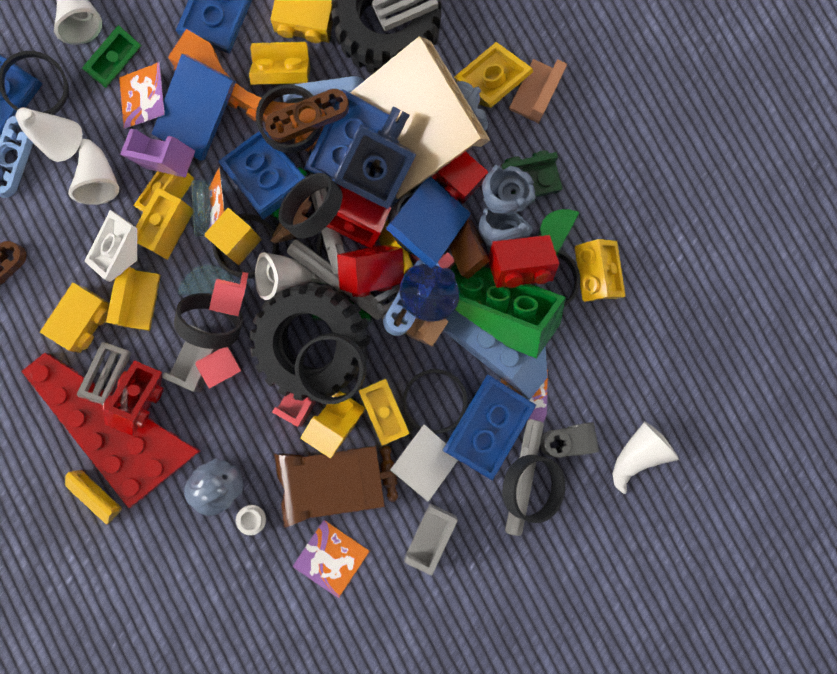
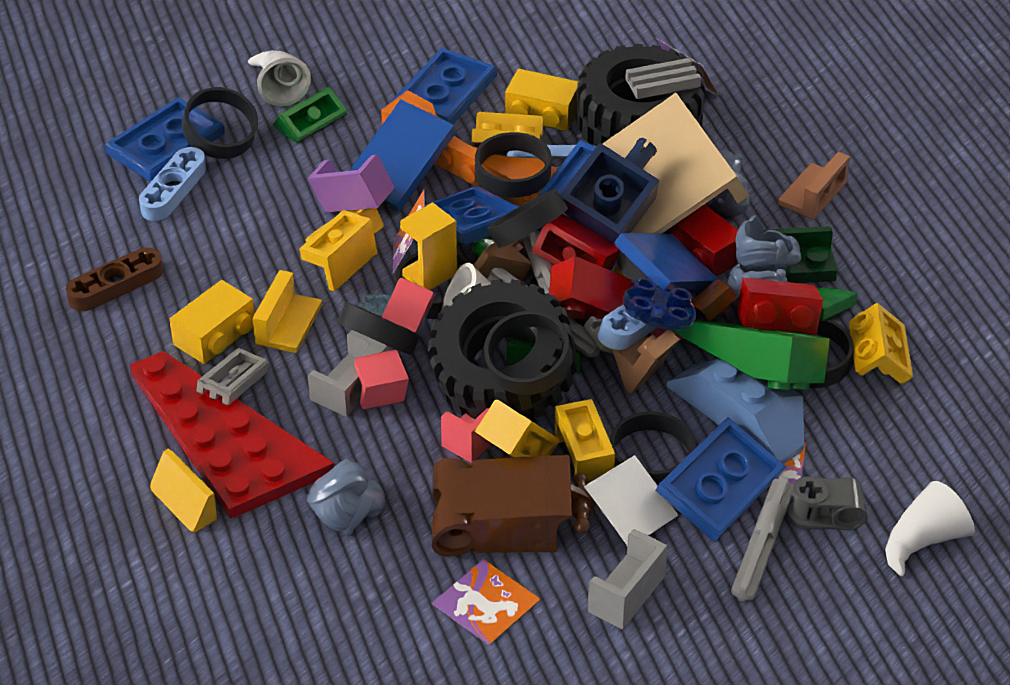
camera: 15 degrees right, 40 degrees down
(52, 134) = (226, 159): white hat -> none
(94, 178) = (266, 207): white hat -> none
(113, 248) = (284, 250): white slope -> none
(131, 400) = (268, 387): red brick -> none
(141, 95) = (341, 143): sticker -> none
(201, 206) = (388, 244): clear light blue tile -> none
(251, 519) = (386, 540): white plate -> none
(311, 103) = (568, 146): reddish brown beam -> none
(495, 73) = (769, 164): yellow slope -> none
(557, 488) = (796, 516): black tyre -> none

